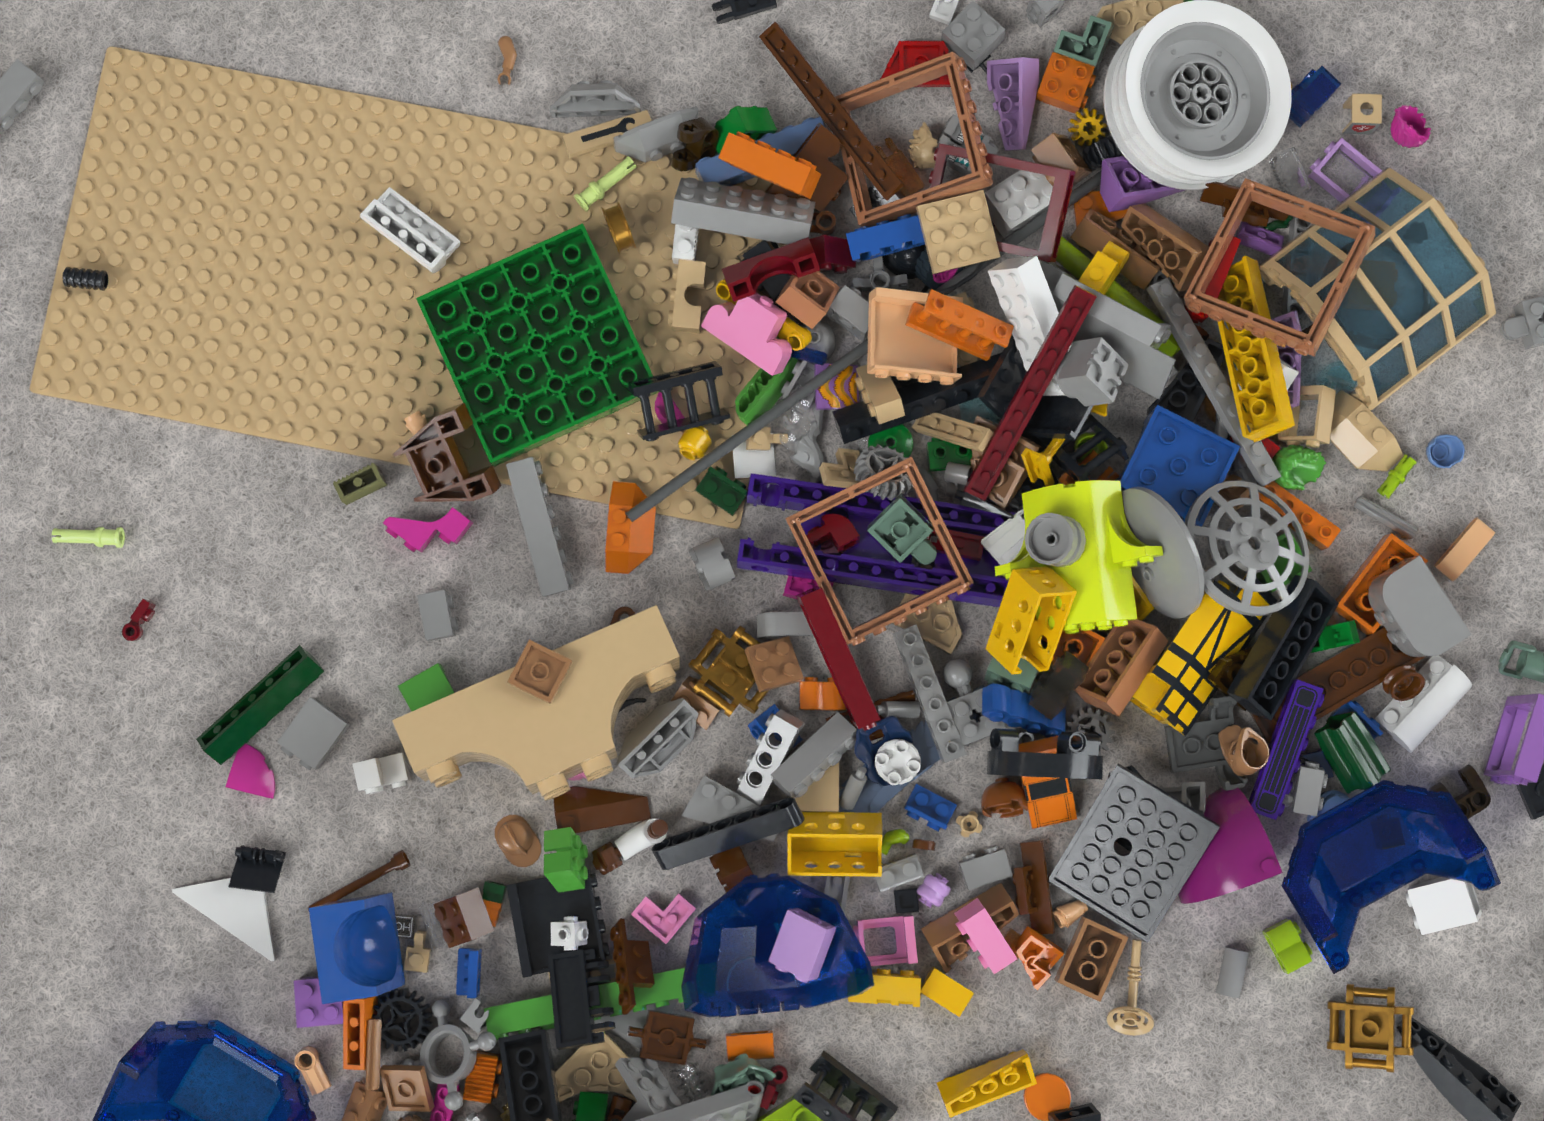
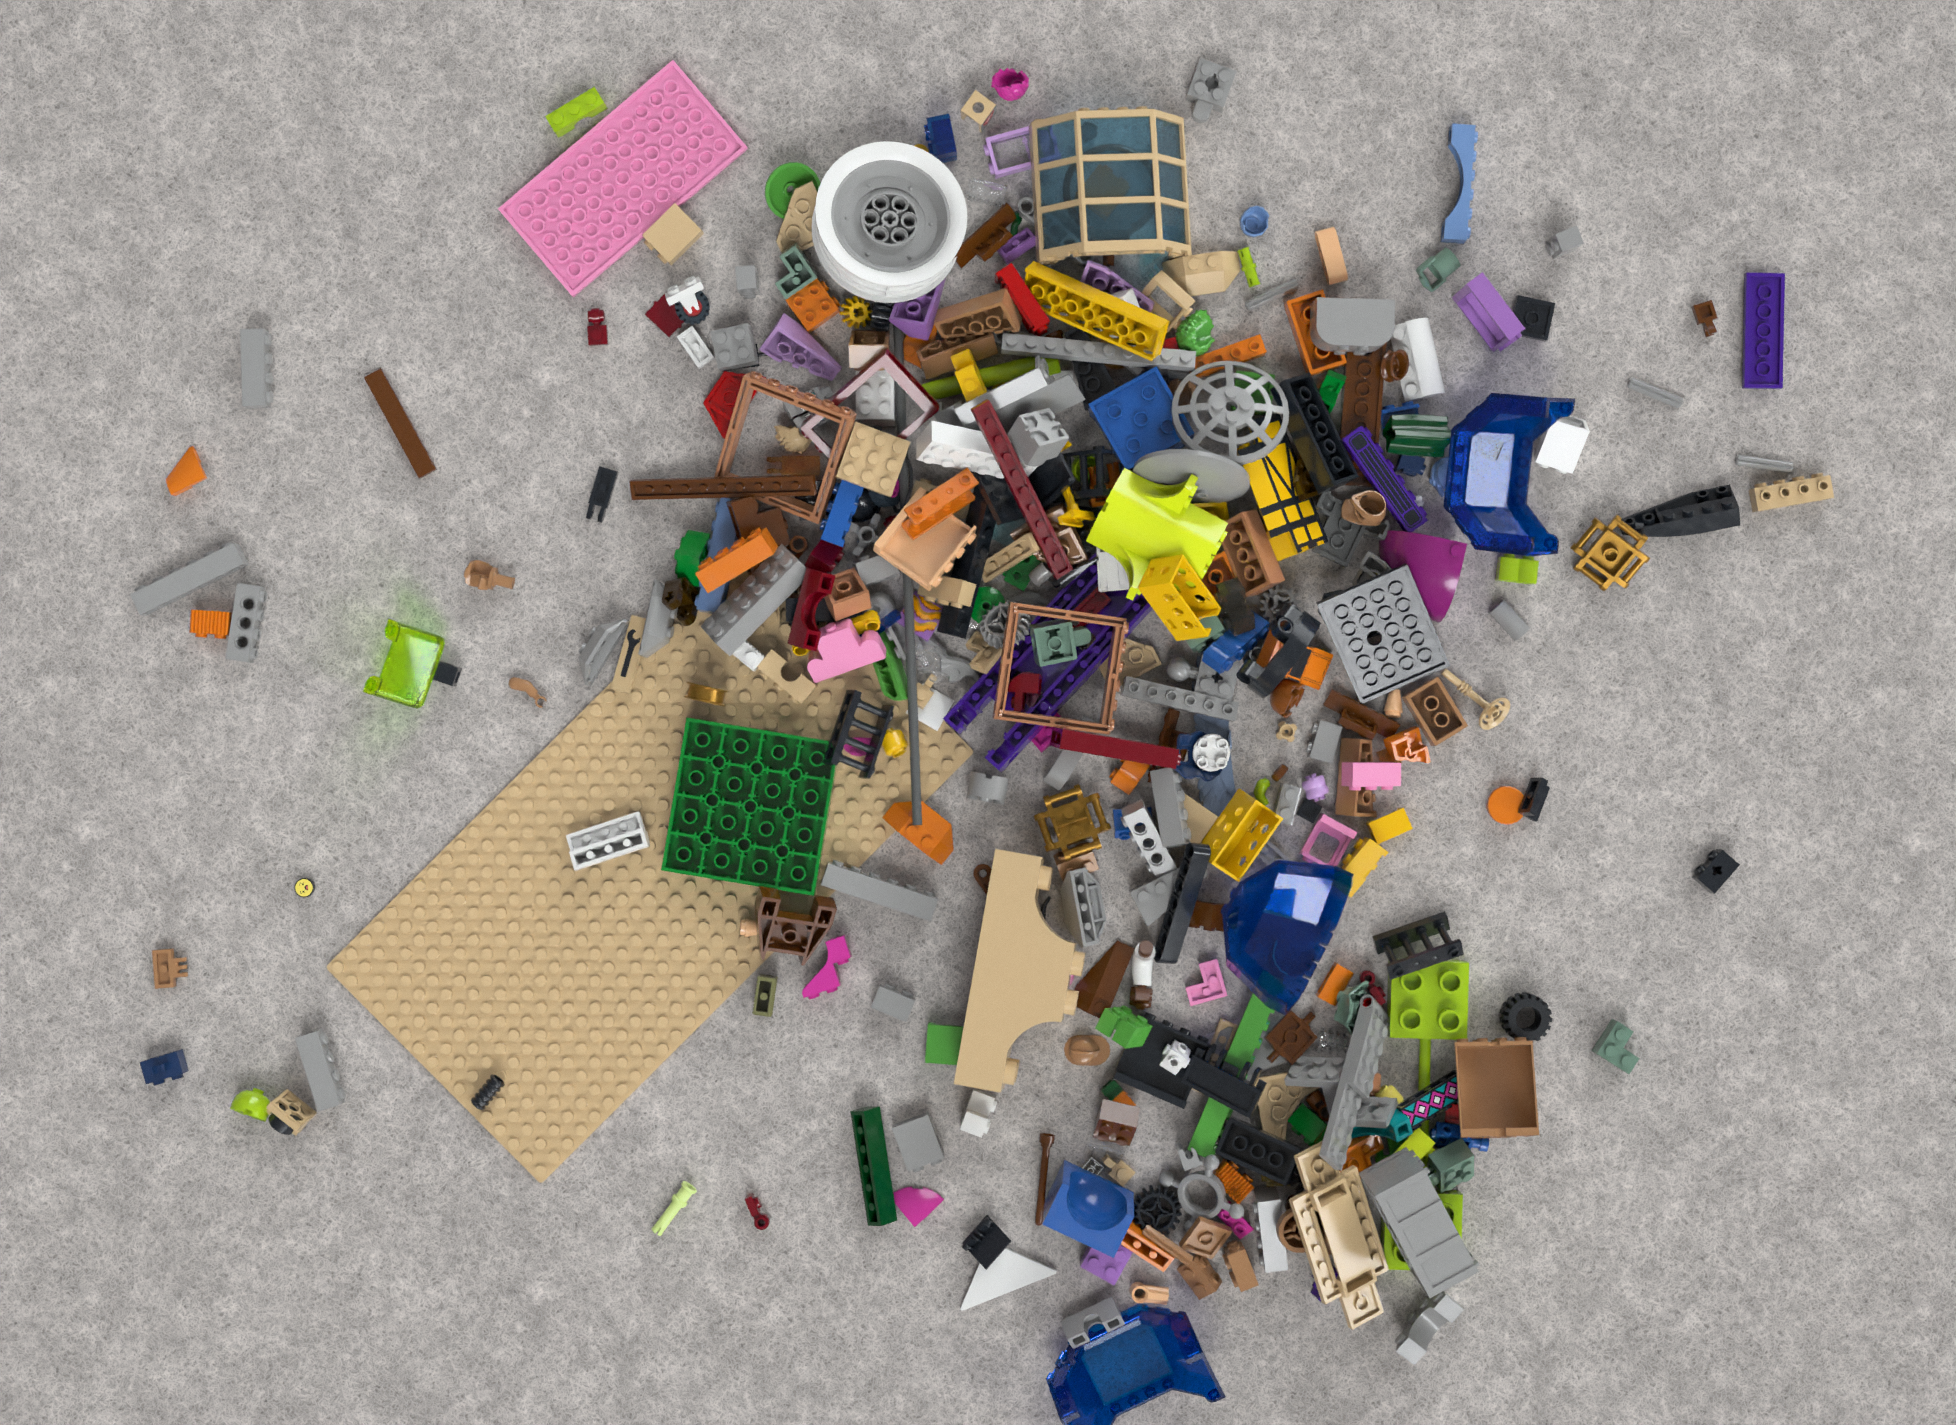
camera: 50 degrees left, 5 degrees up
(232, 1019) = (1078, 1325): none -> light grey arch
(469, 972) = (1155, 1143): blue bracket -> none
(539, 671) = (988, 960): medium nougat plate -> none
(597, 189) = (666, 690): yellowish green pin -> none
(632, 965) = (1227, 1028): reddish brown bracket -> none
(722, 490) = (940, 746): dark green bracket -> none
(774, 664) = (1086, 792): medium nougat plate -> none
(802, 945) = (1292, 903): lavender brick -> none
(853, 788) = (1209, 795): light grey cylinder -> none
(899, 709) = (1175, 727): light grey cylinder -> none
(929, 807) = (1256, 751): blue bracket -> none
(986, 1082) = (1469, 840): yellow wedge -> none
(1055, 540) = (1137, 544): light grey wheel -> none
(1259, 325) = (1086, 295): nougat window -> none
(1308, 789) = (1426, 487): light grey brick -> none
(1474, 785) = (1501, 377): dark brown piece -> none

